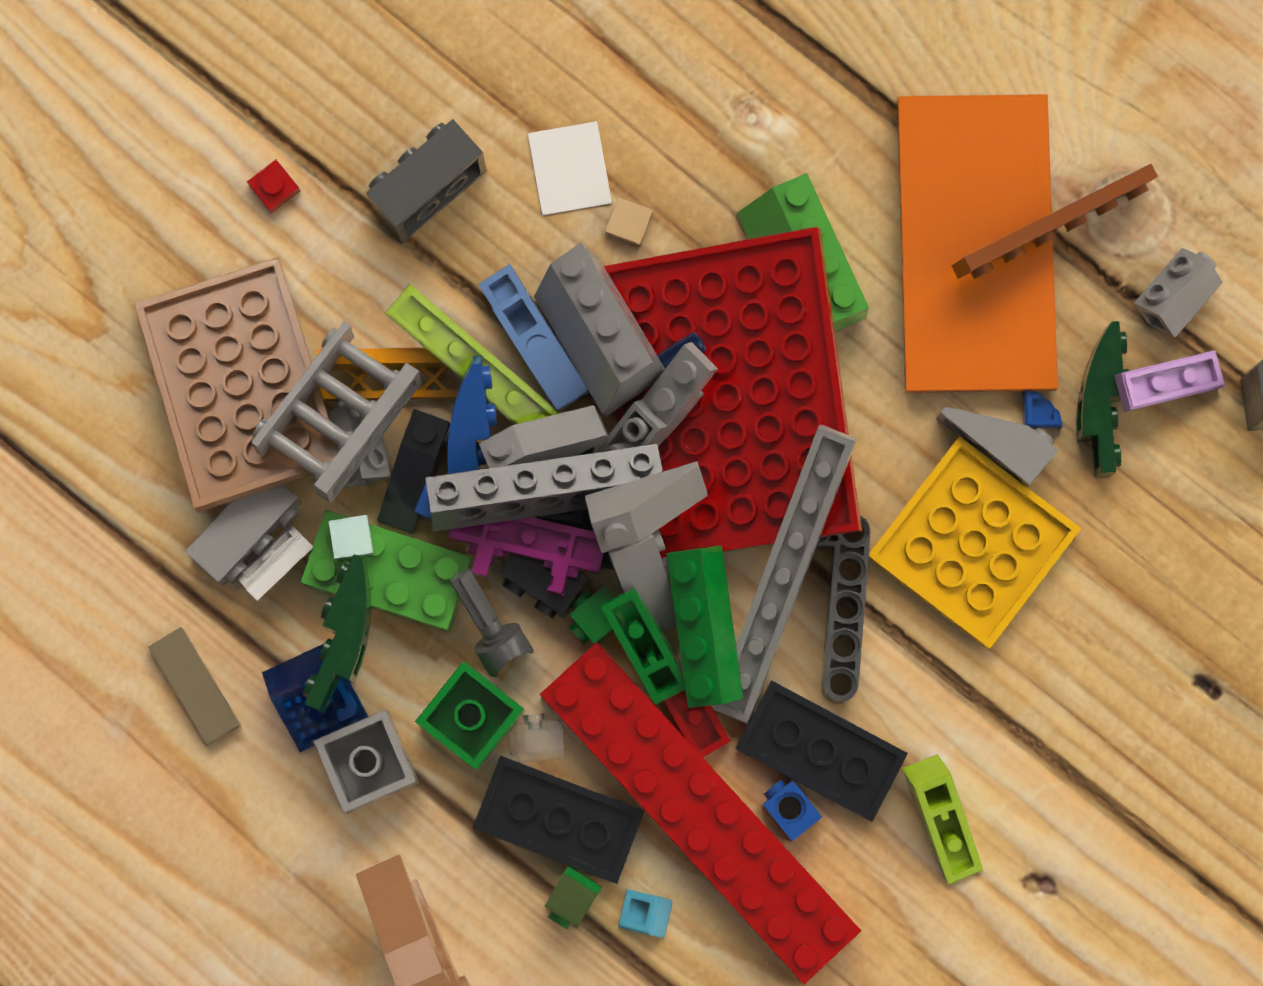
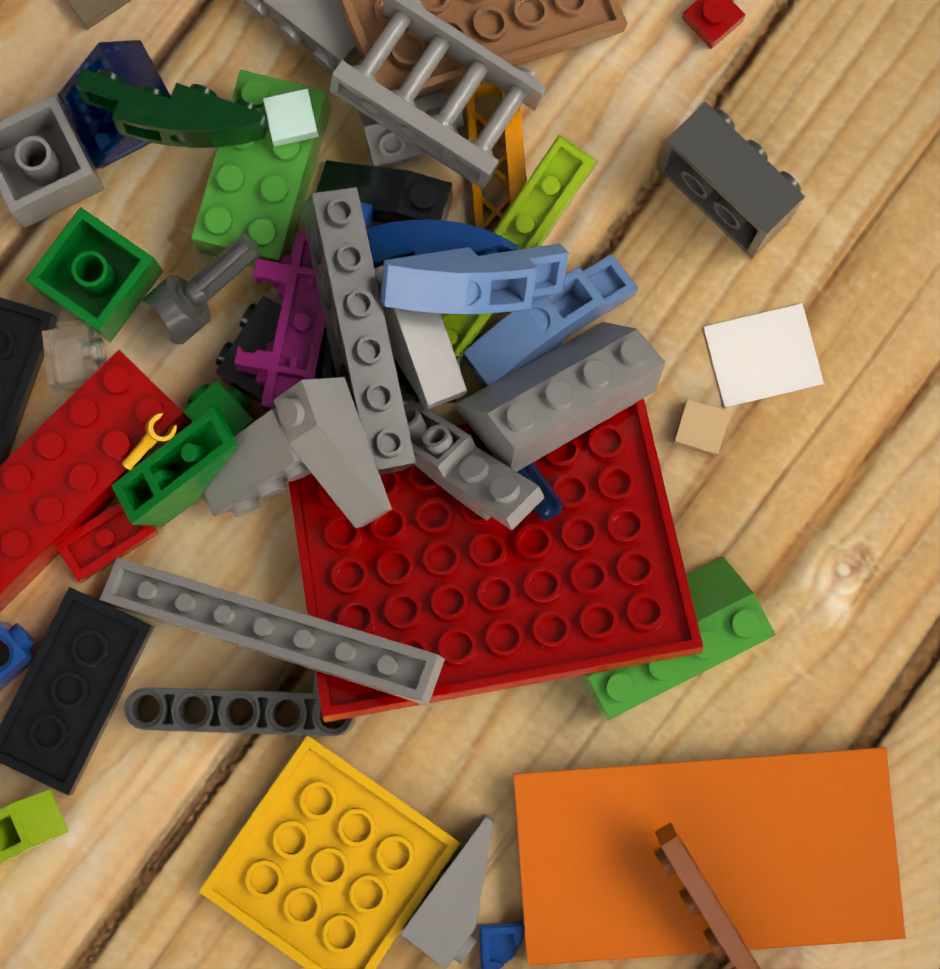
camera: 90 degrees right, 0 degrees up
(274, 562) = (267, 44): white plate -> none
(513, 390) = (473, 284): none -> medium blue slope
(619, 666) = (147, 442): none -> yellow hand
(705, 626) = (203, 537): green brick -> none

